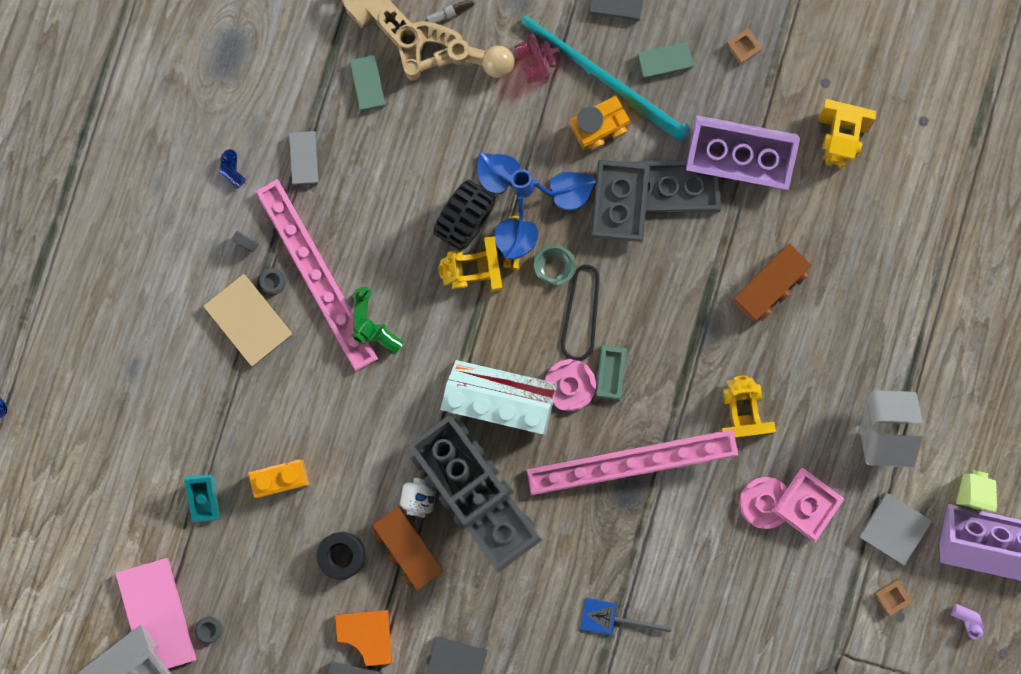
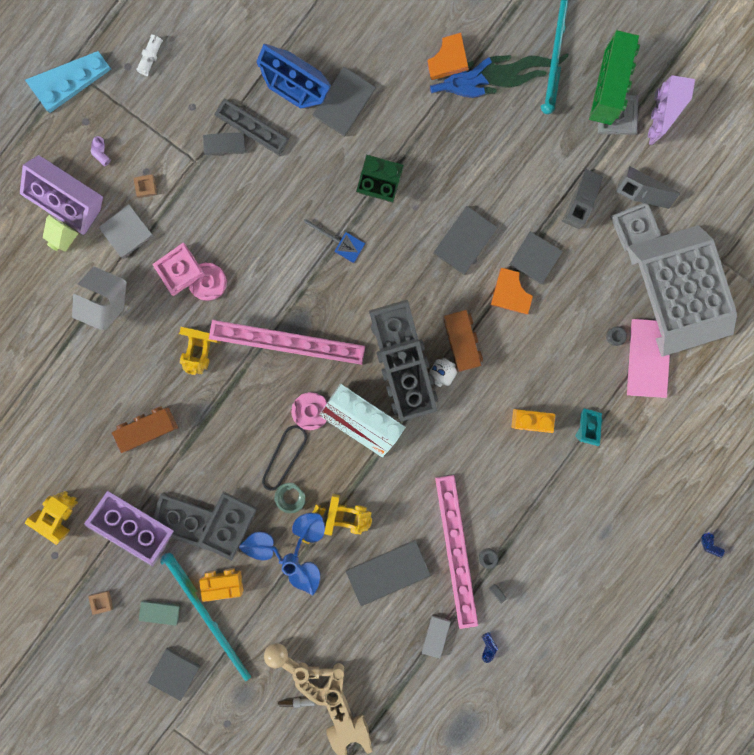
camera: 160 degrees left, 5 degrees up
(248, 320) = (514, 537): tan tile -> none
(324, 555) = (520, 347): black tyre -> none
(365, 329) = (436, 501): green pin -> none
(367, 83) = (372, 673): sand green tile -> none
(394, 216) = (388, 573): none -> dark grey tile
(464, 215) = (339, 556): black tyre -> none
(531, 49) = (249, 656): clear pink hips -> none
(589, 120) = (226, 591): dark grey tile -> none
(611, 372) = (279, 409): sand green tile -> none

